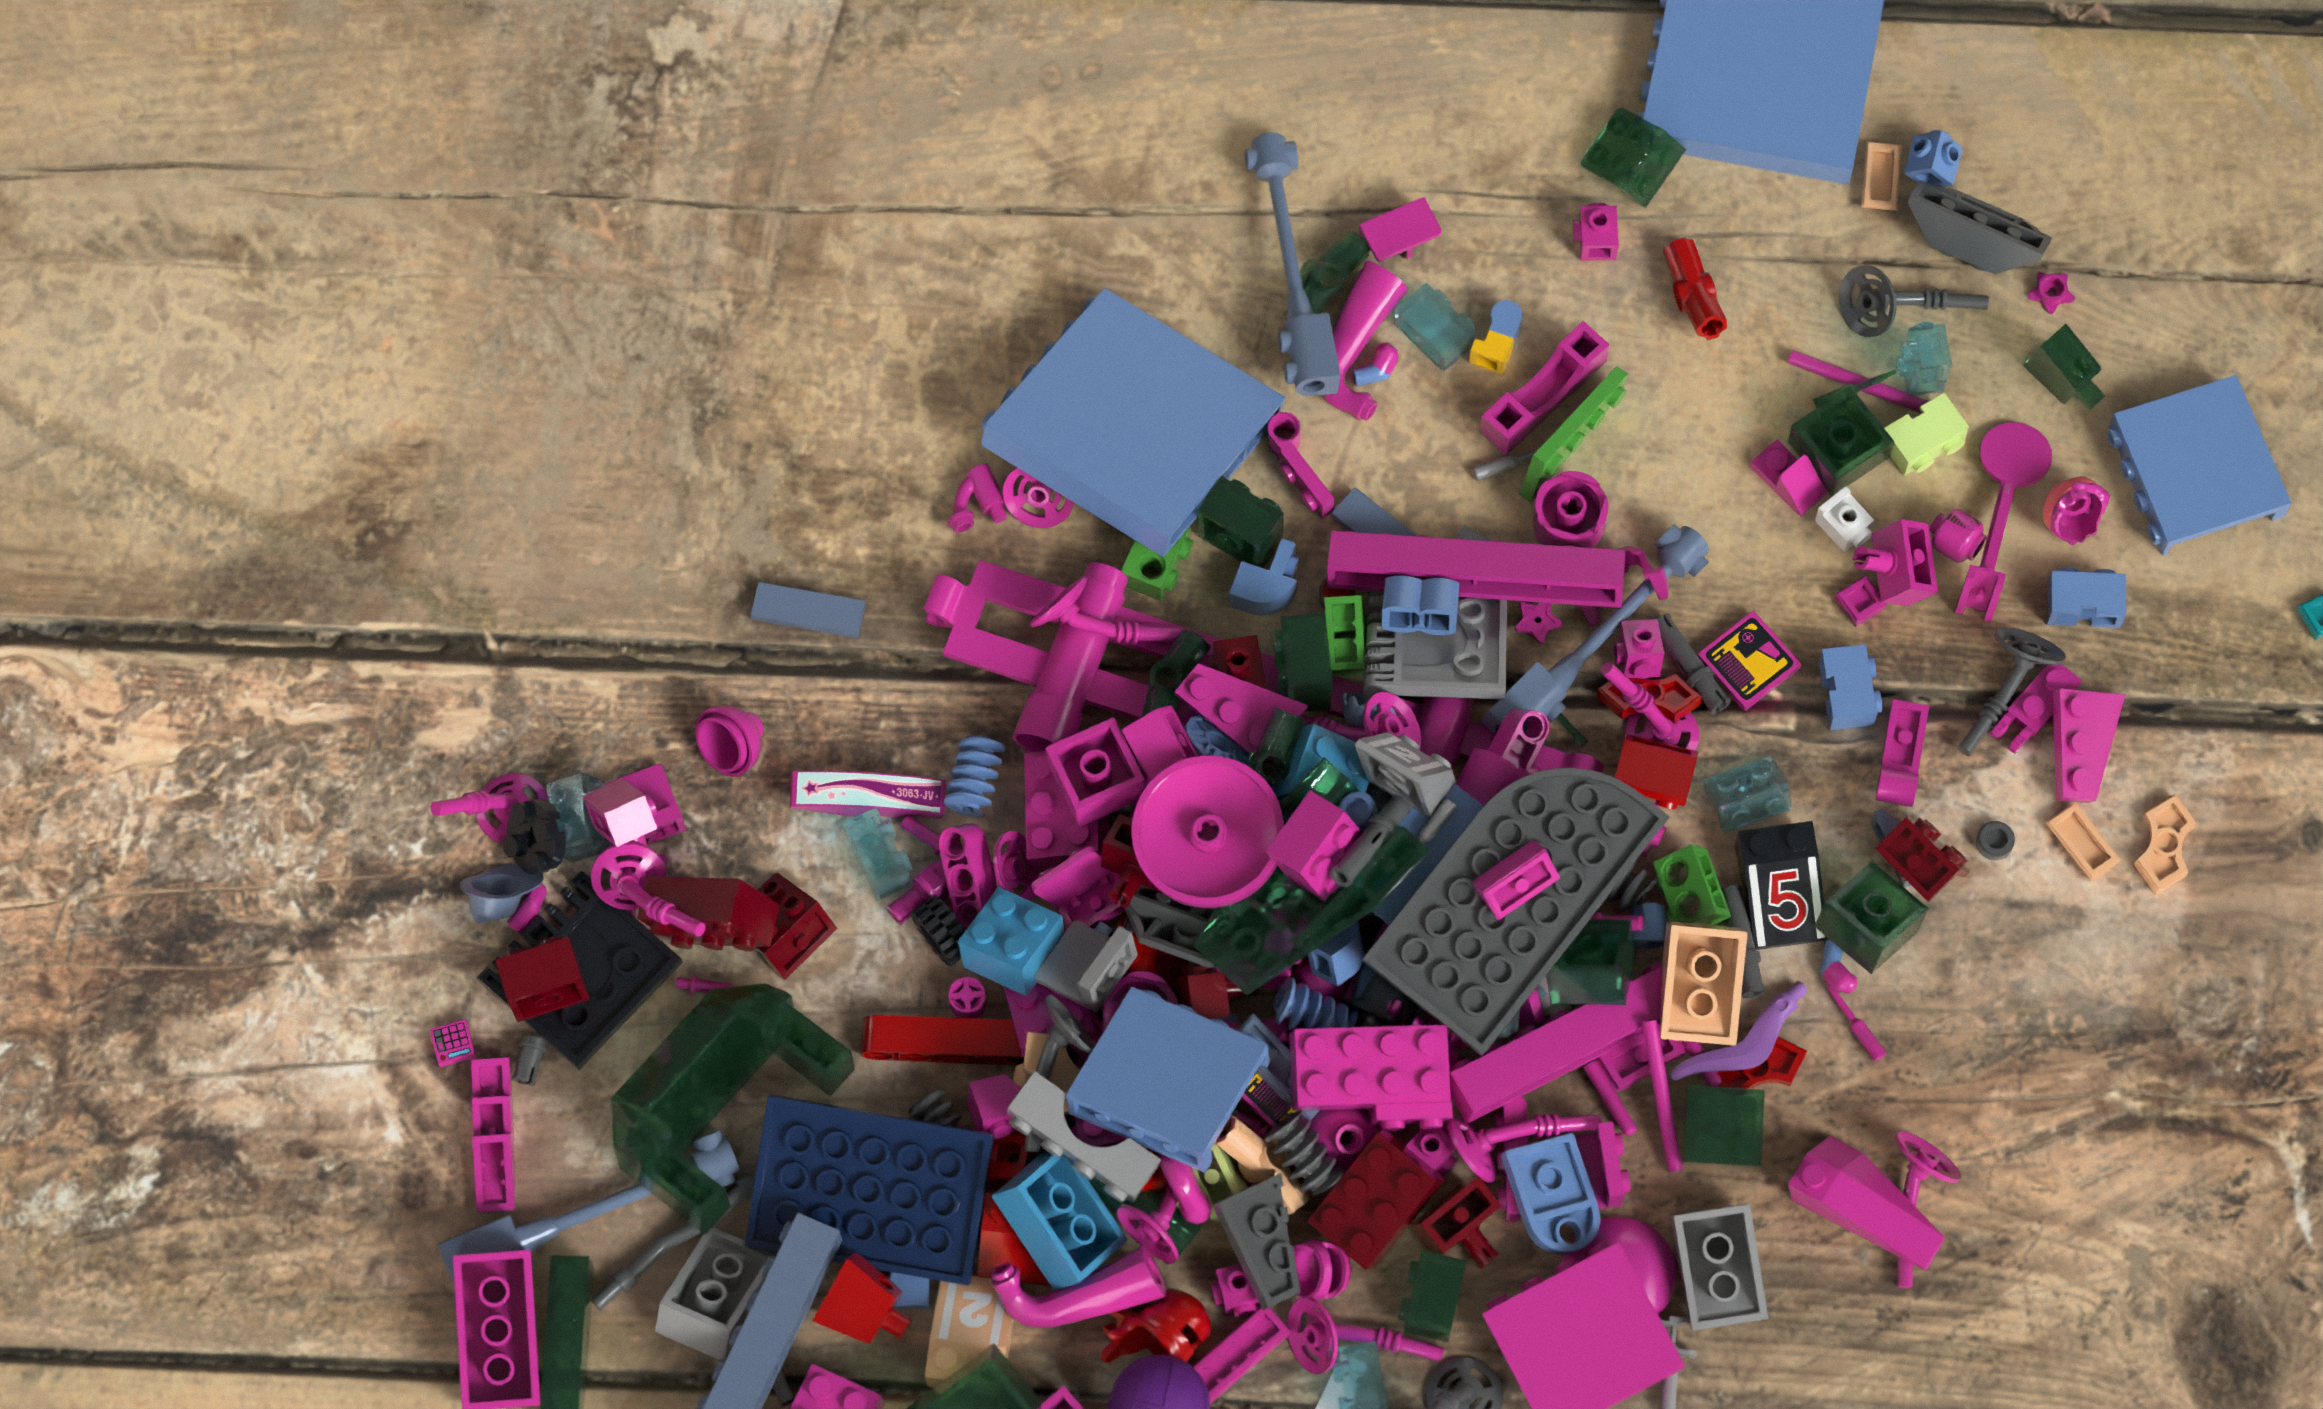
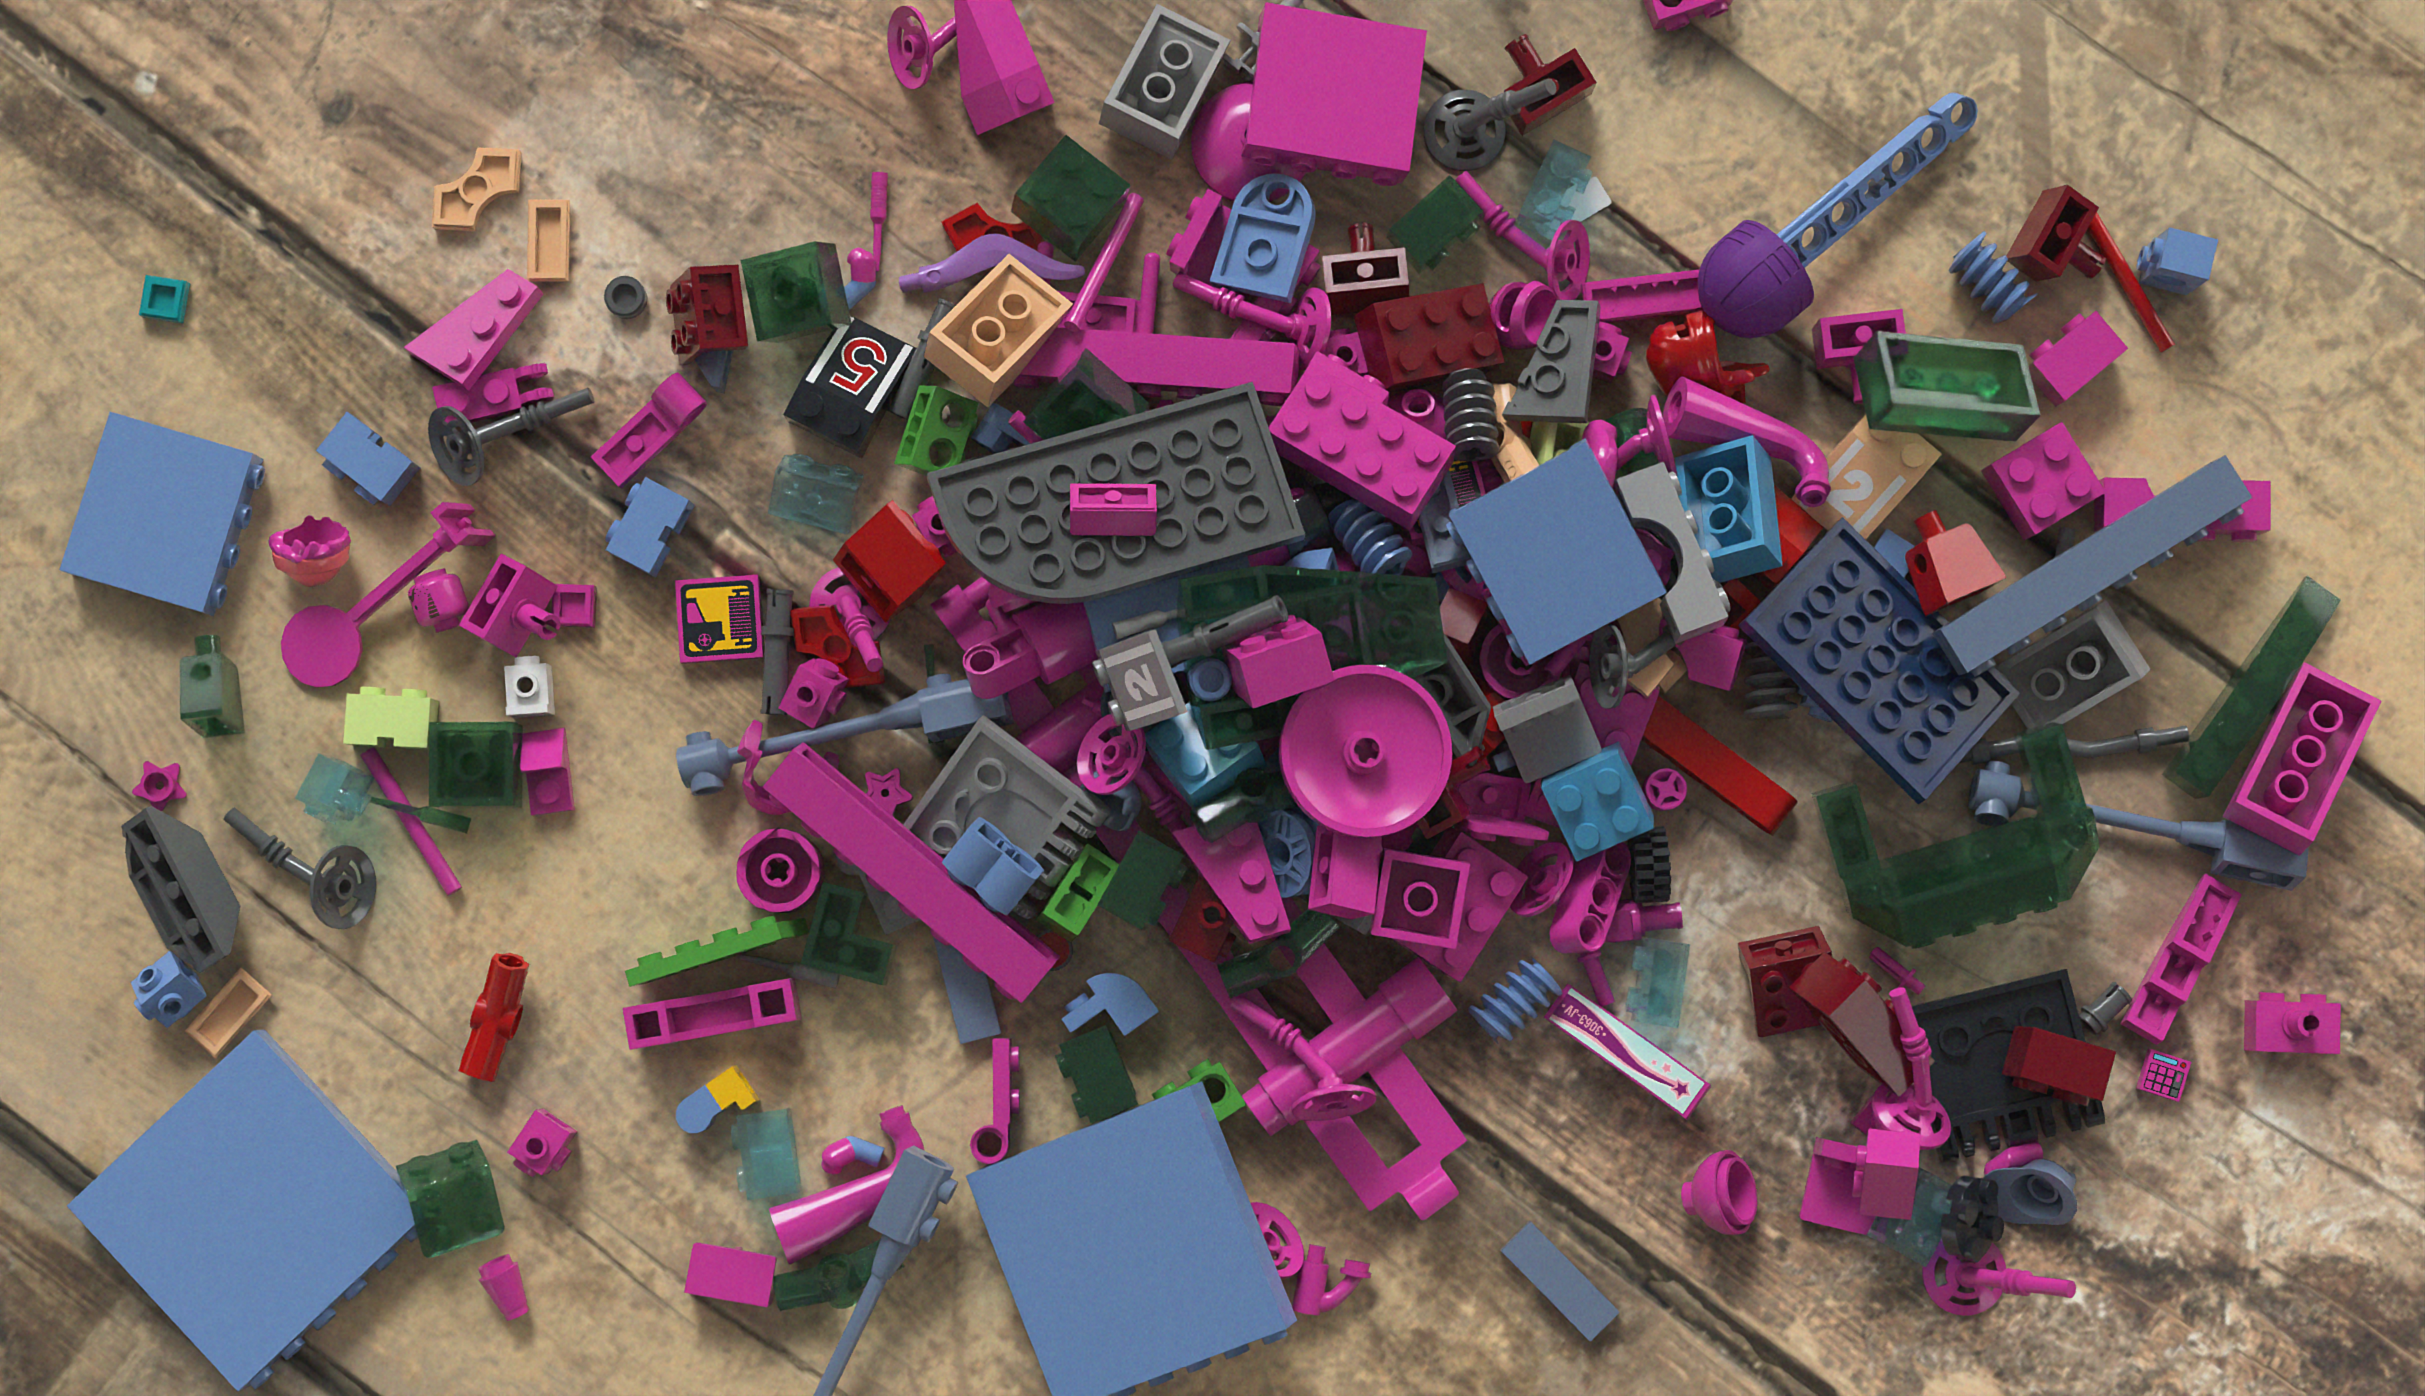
camera: 150 degrees left, 15 degrees up
(377, 1139) = (2292, 1026): none -> dark pink brick
(1488, 490) = (835, 941): none -> clear green brick
(1553, 128) = (504, 1286): none -> dark pink cone

